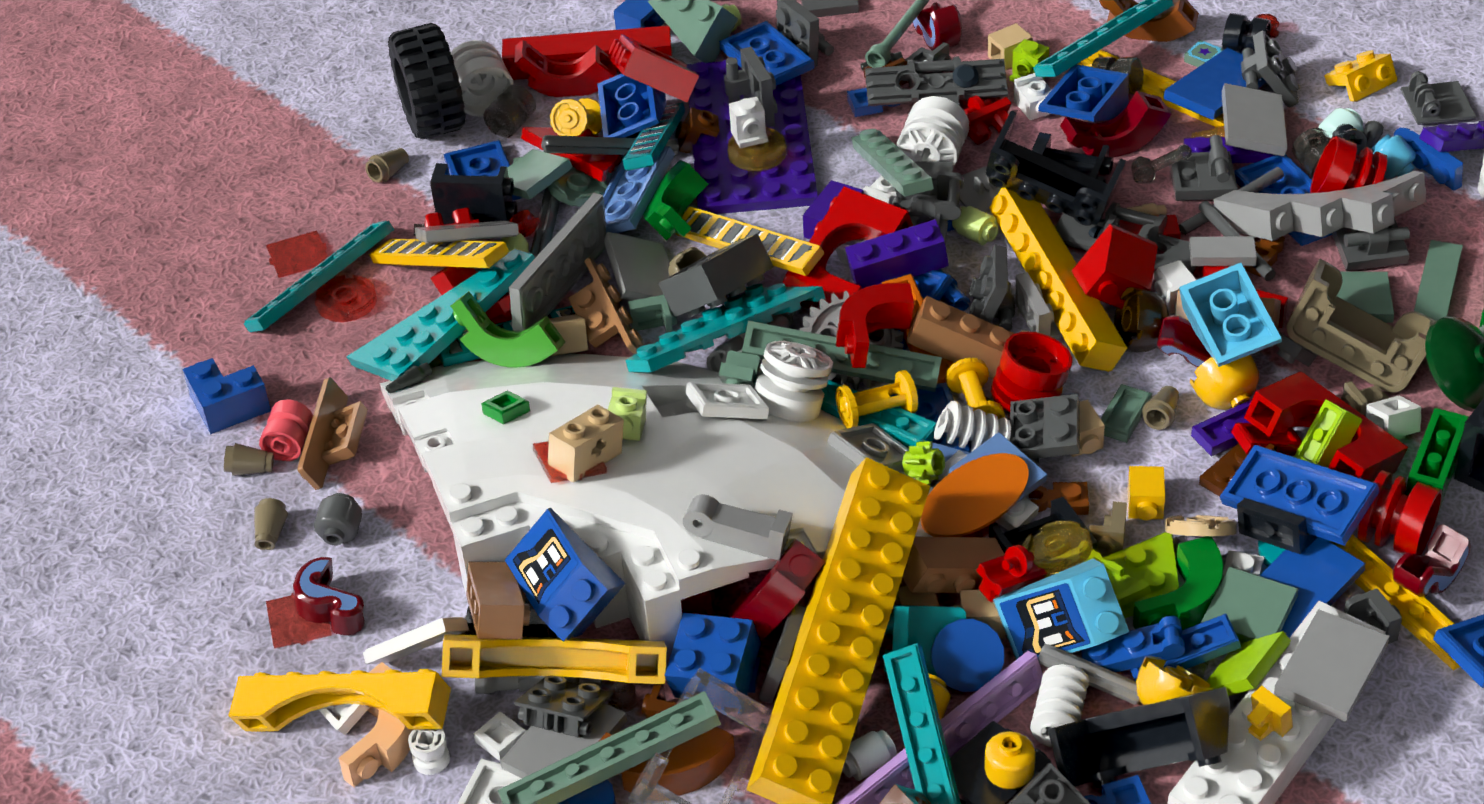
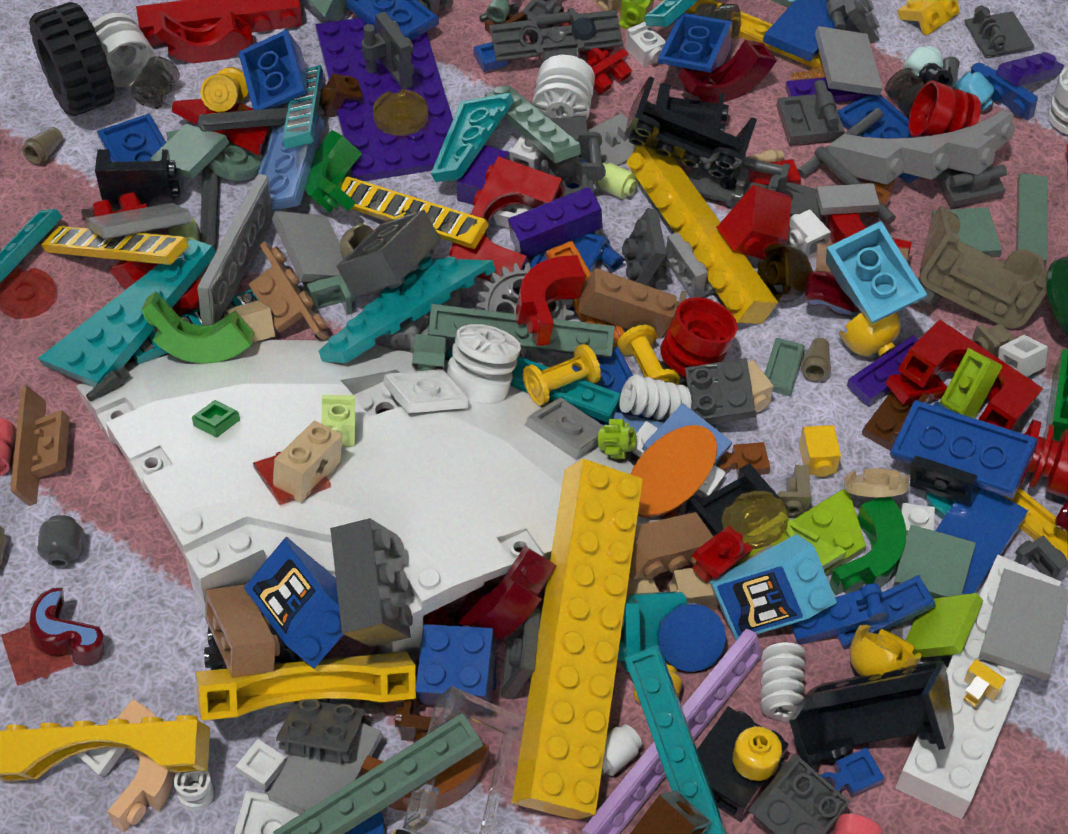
camera: 15 degrees left, 10 degrees up
(415, 640) = (163, 674): white tile -> none
(526, 222) = (190, 201): clear red plate -> none
(626, 553) = (371, 582): none -> dark grey brick
(653, 67) = (291, 35): red arch -> none
(738, 527) = (470, 539): light grey leg -> none
(748, 122) = (391, 88): white brick -> none
(822, 170) = (468, 133): none -> teal wing
(1098, 676) = (814, 647): light grey axle -> none
(1144, 169) = (761, 113): clear smoke piece -> none

